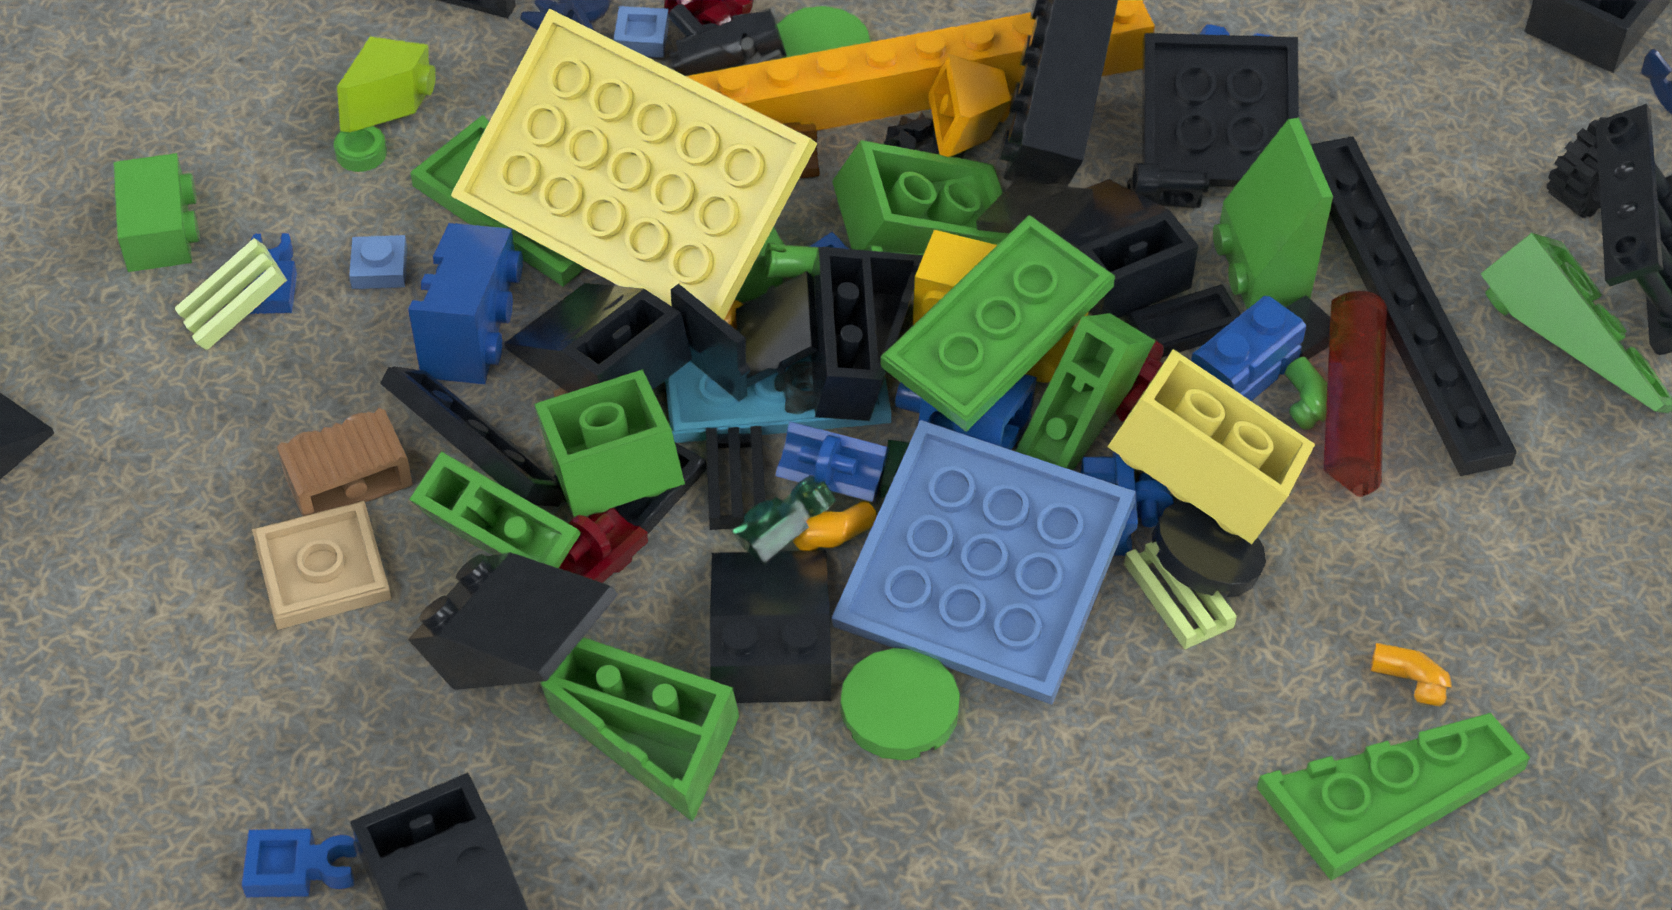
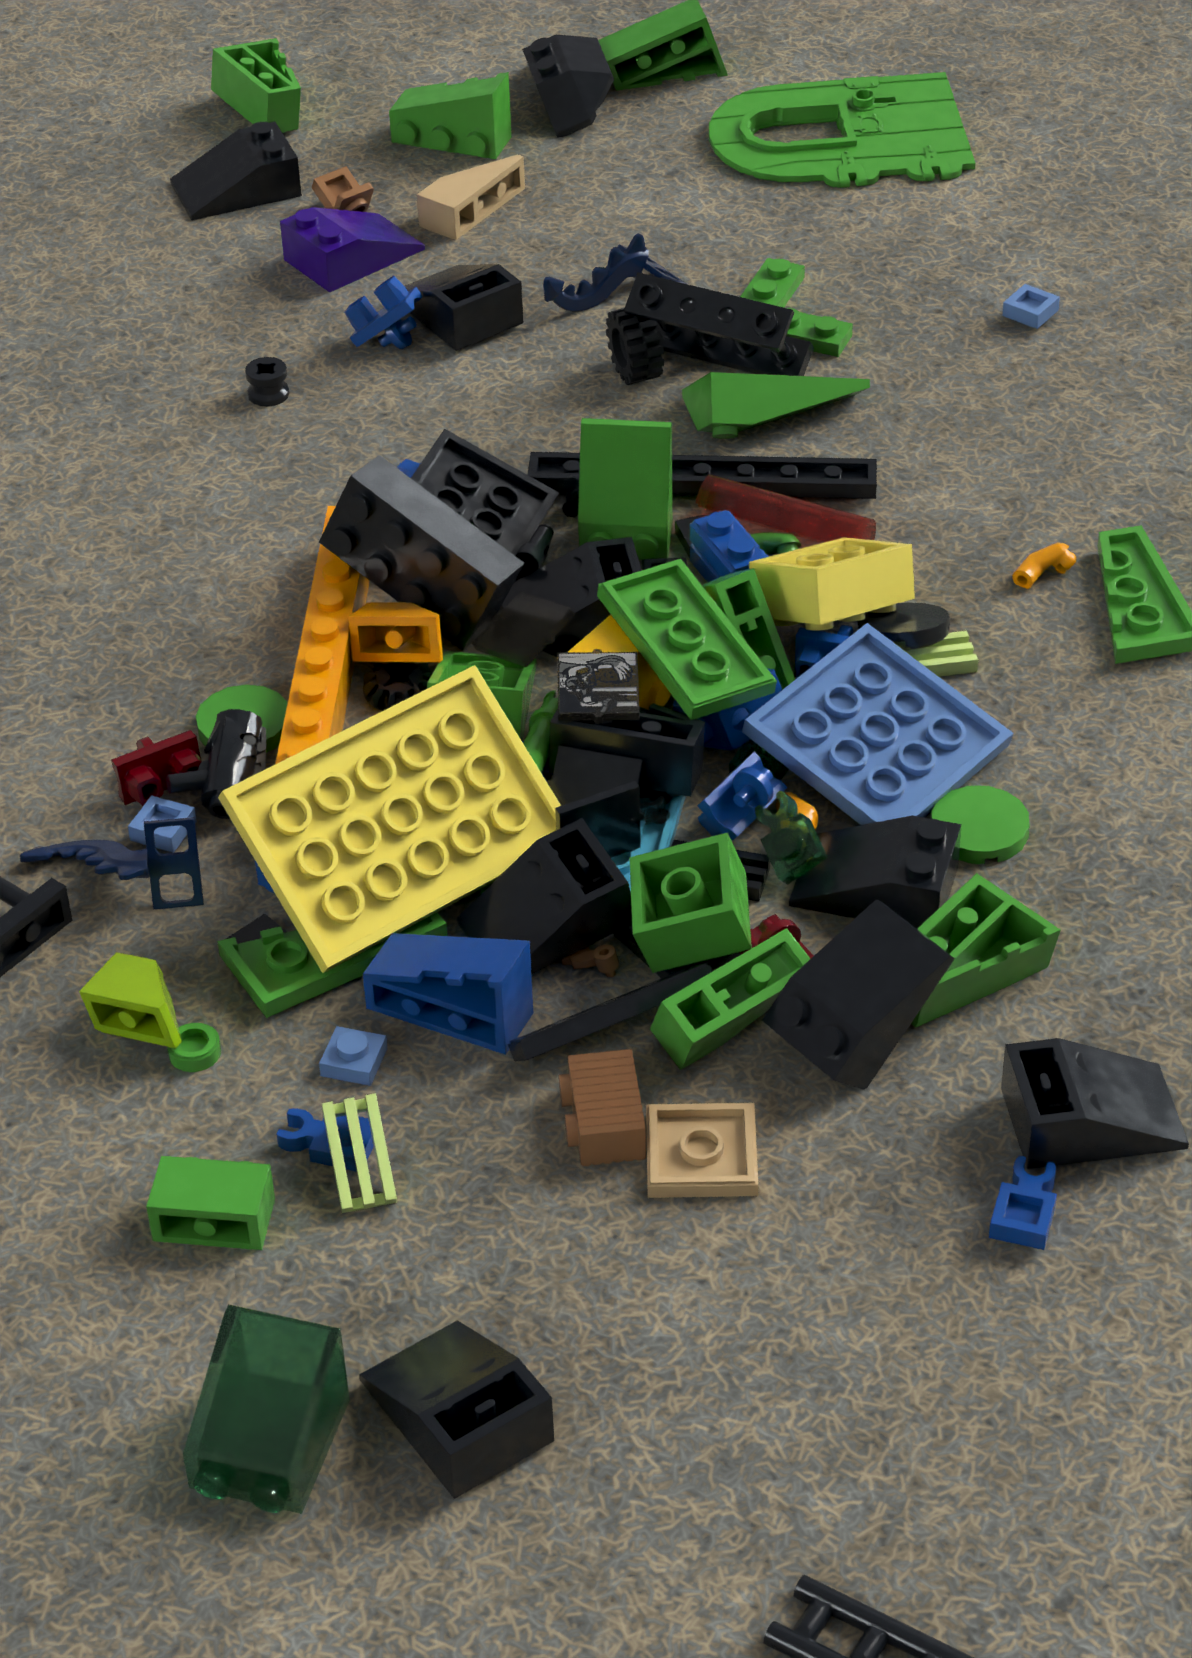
camera: 70 degrees left, 10 degrees down
(886, 268) = (598, 686): none -> piece

